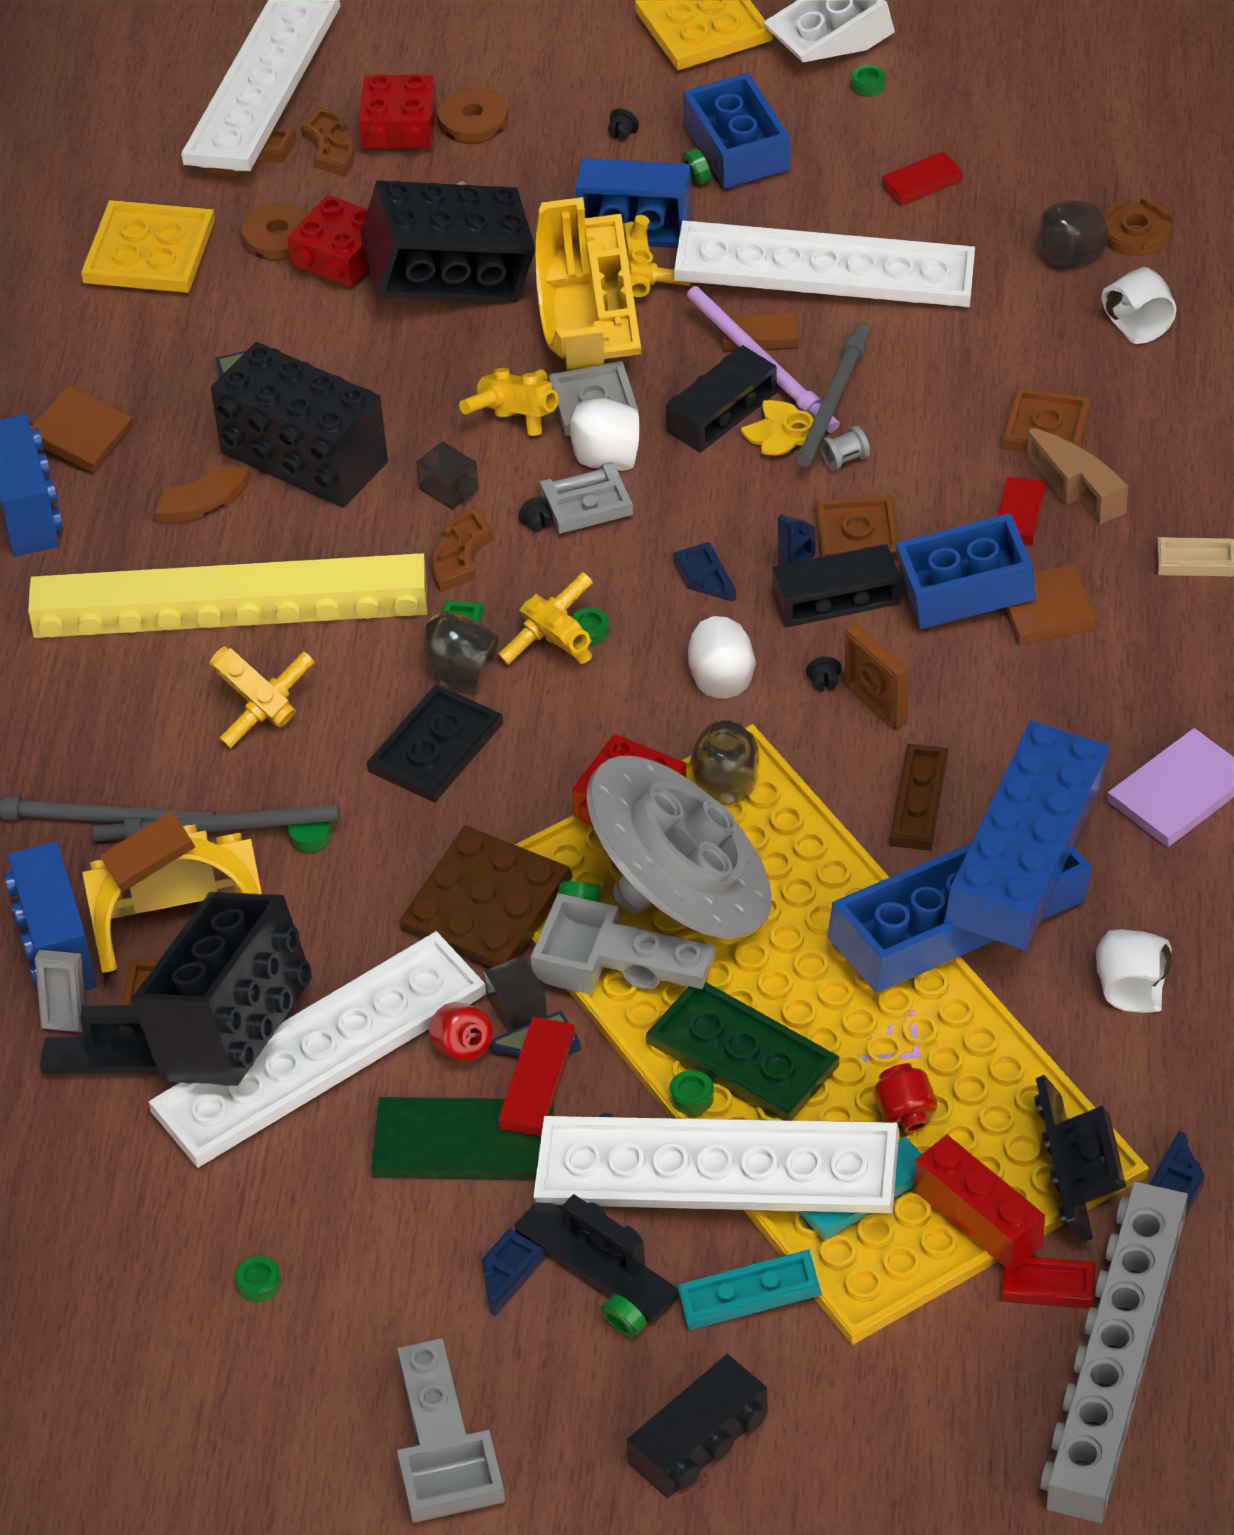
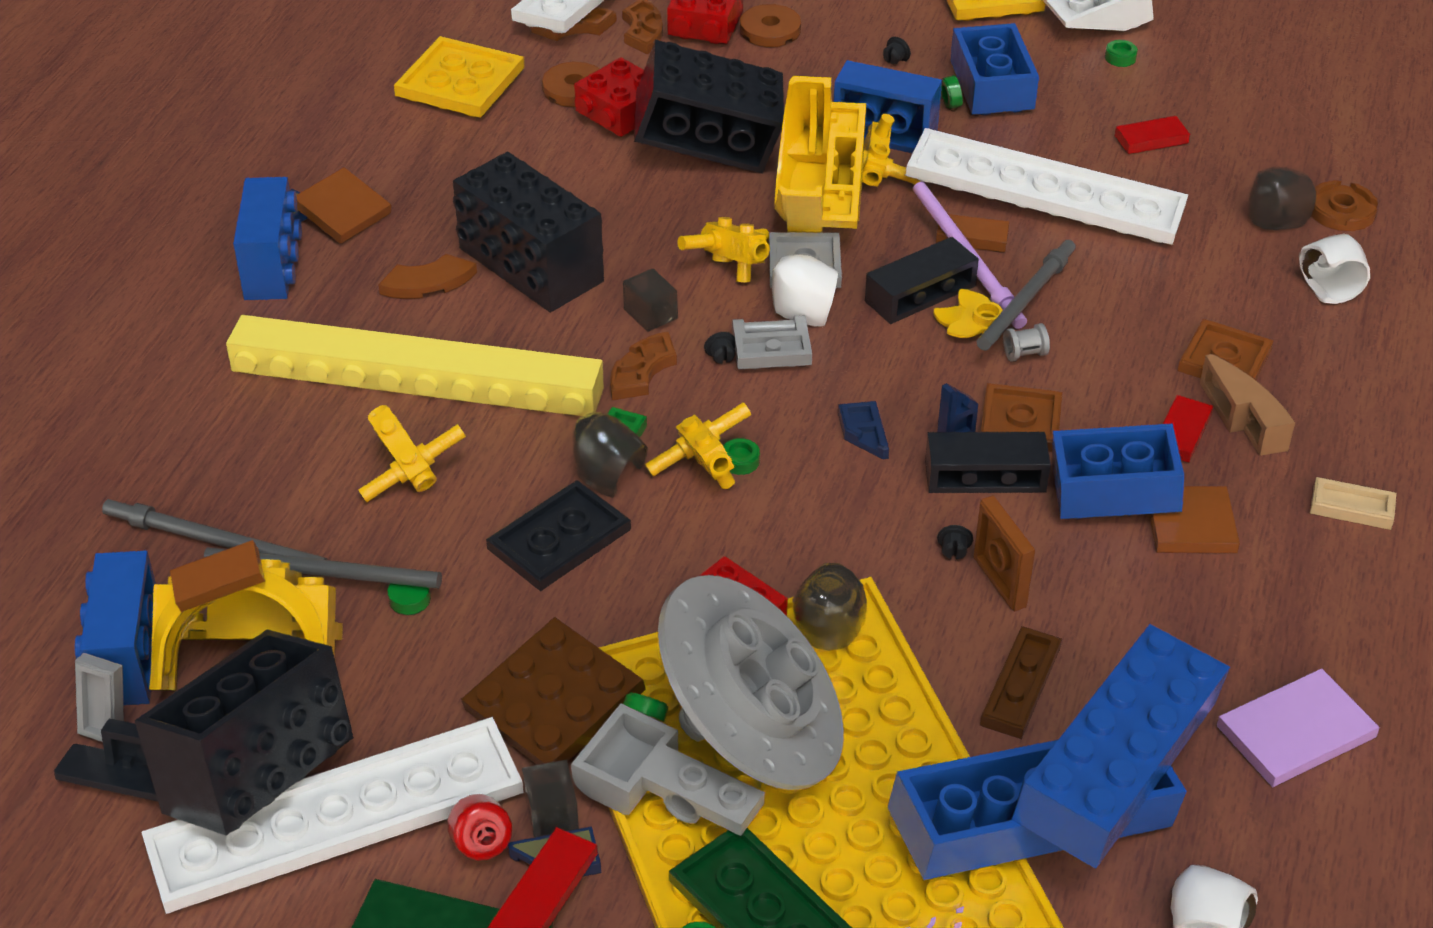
camera: 10 degrees right, 5 degrees down
(721, 657) = (856, 507): white piece -> none

